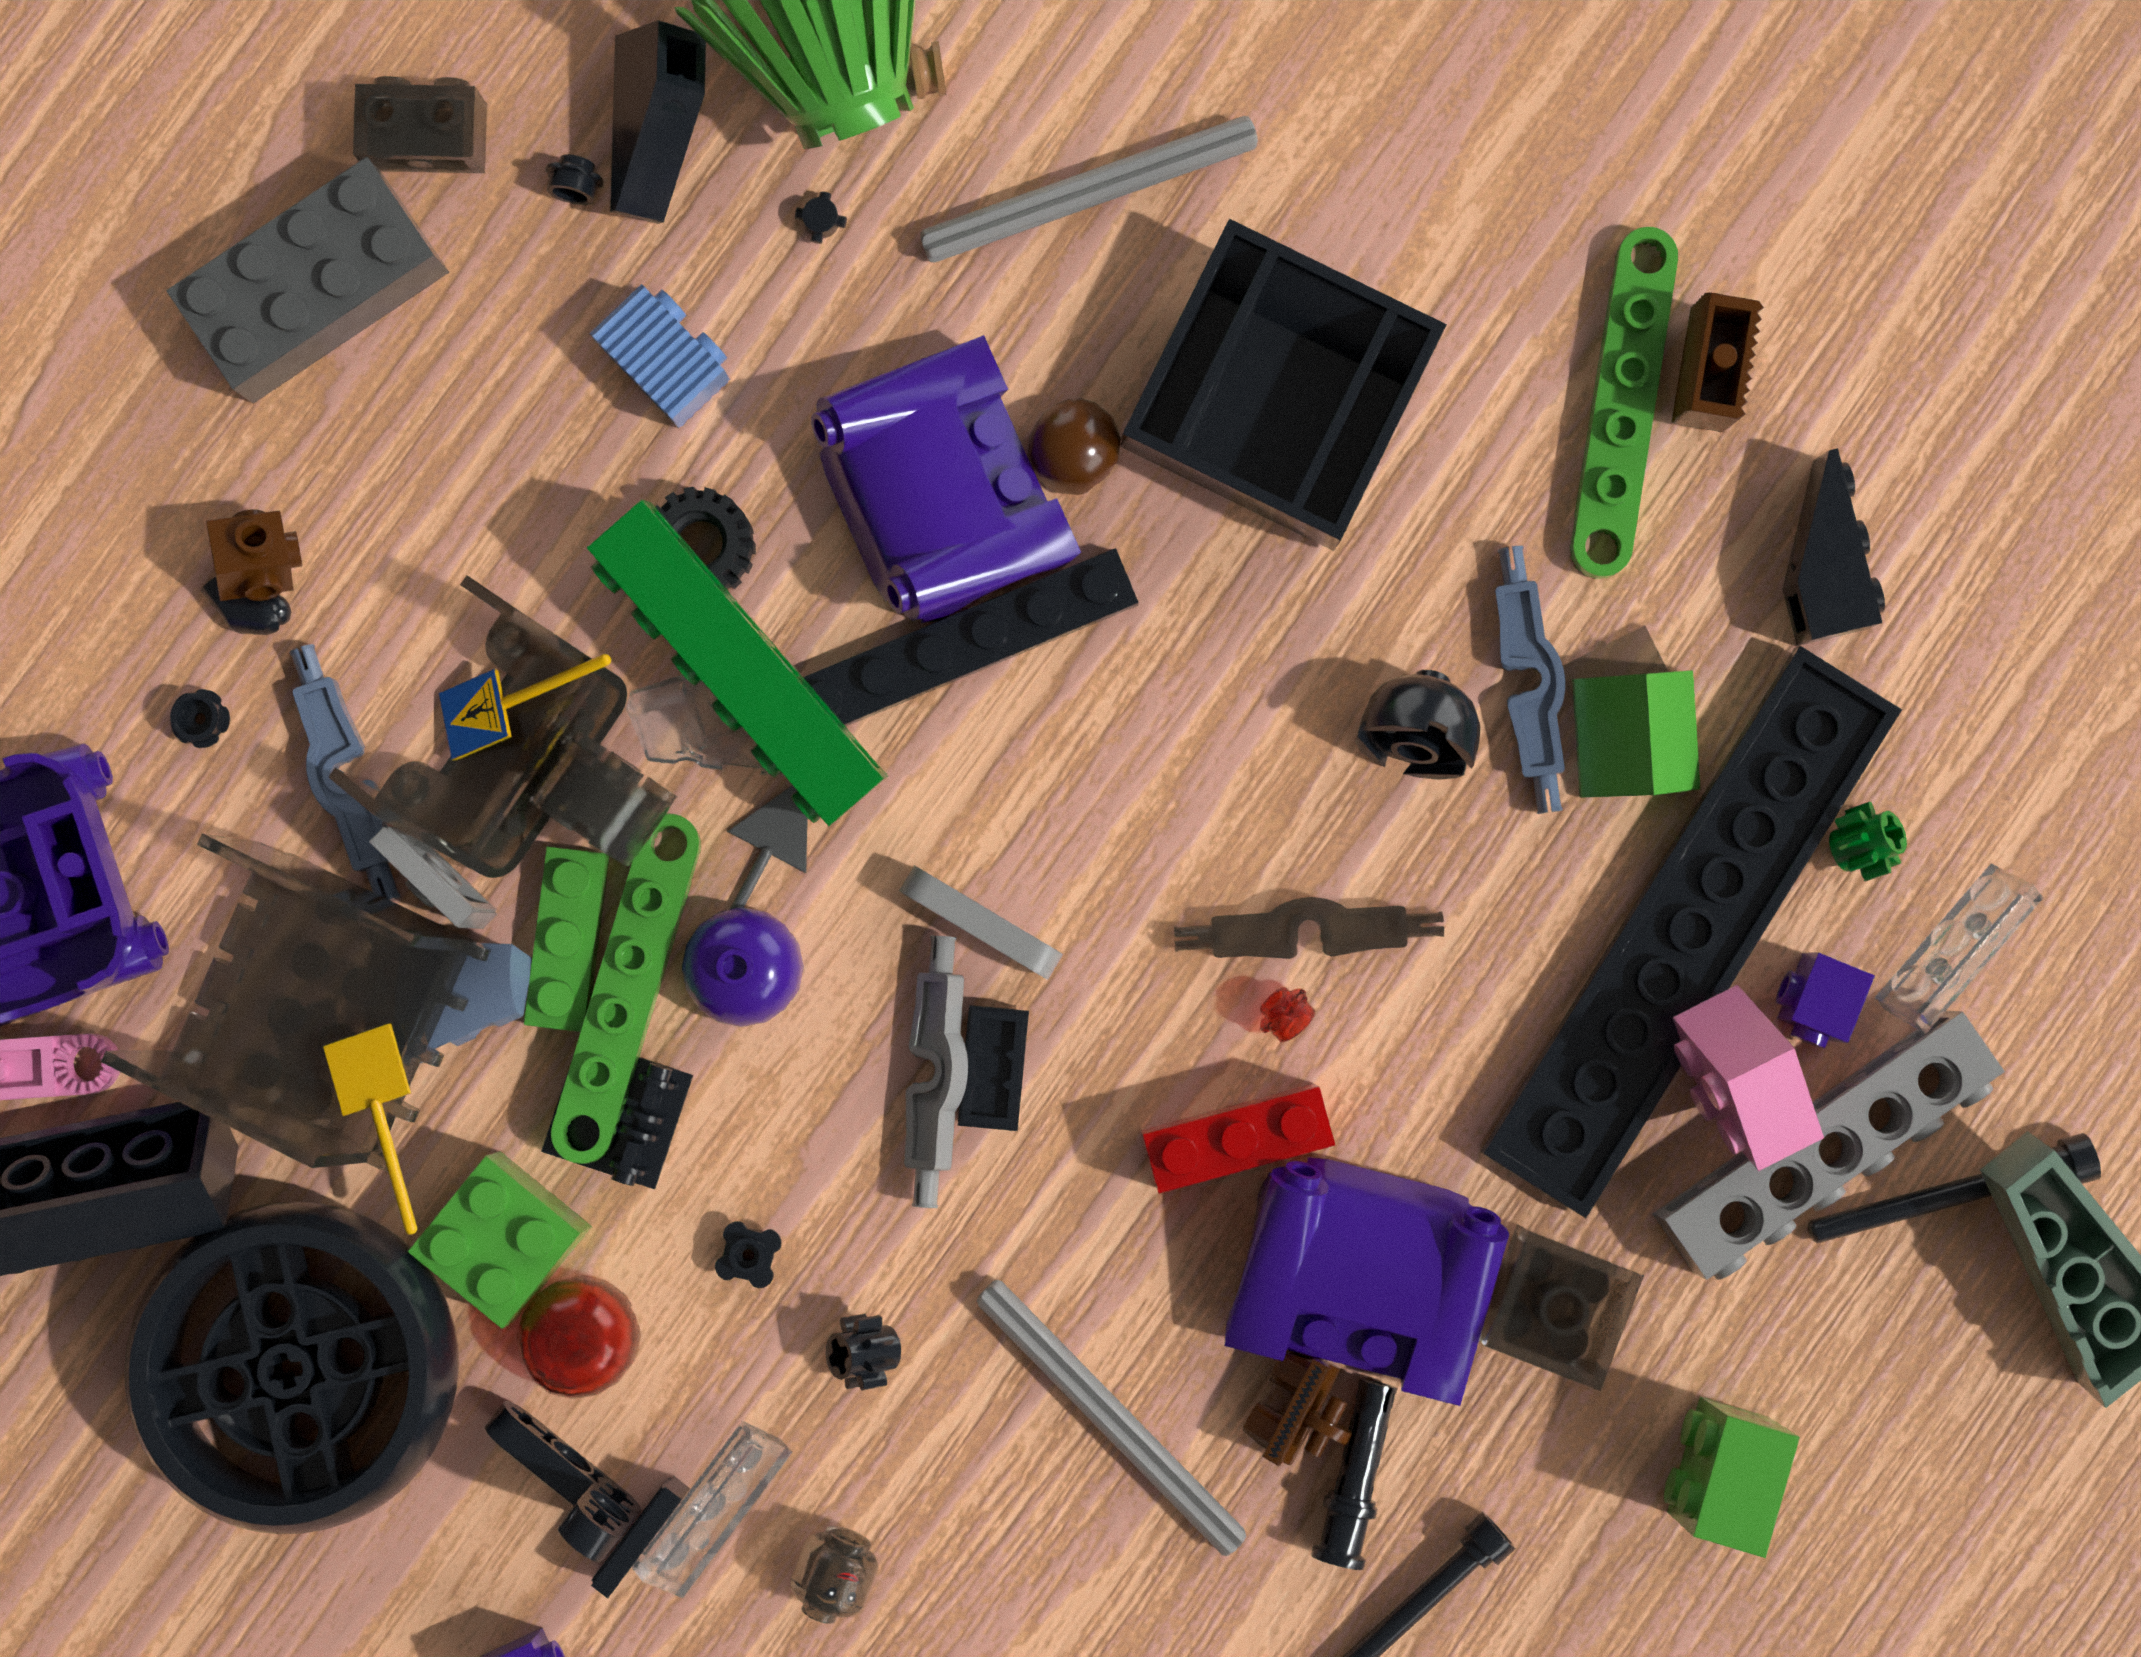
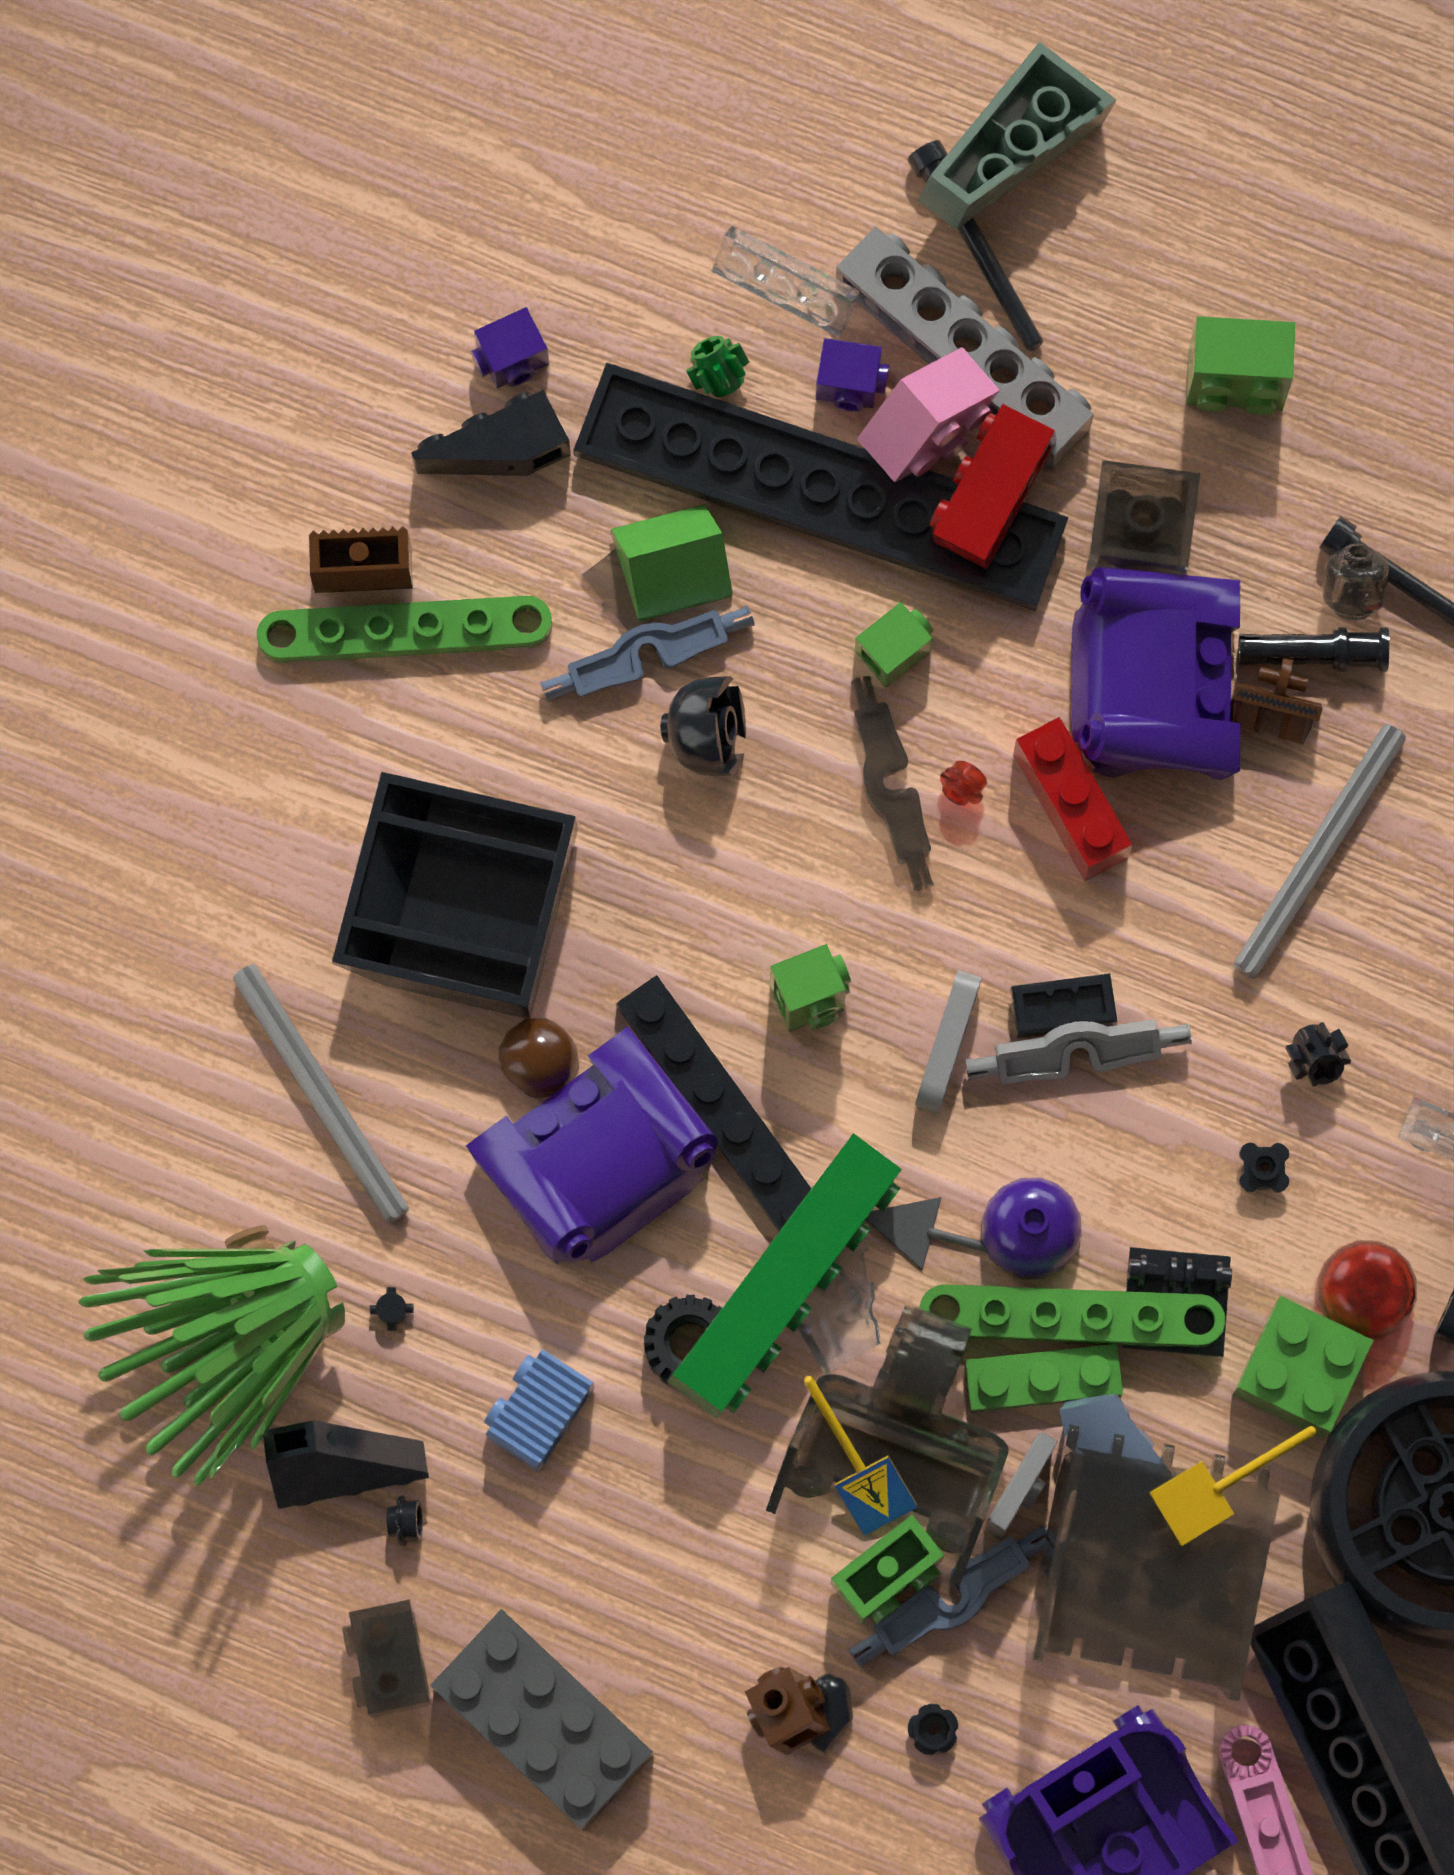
camera: 100 degrees left, 10 degrees down
(378, 704) = (888, 1569): none -> bright green brick
(1073, 772) = (810, 988): none -> bright green brick
(1426, 1545) = (1355, 582): none -> clear smoke head
(1476, 974) = (894, 643): none -> bright green brick
(1642, 1134) = (992, 485): none -> red brick
(1943, 598) = (510, 349): none -> dark purple brick

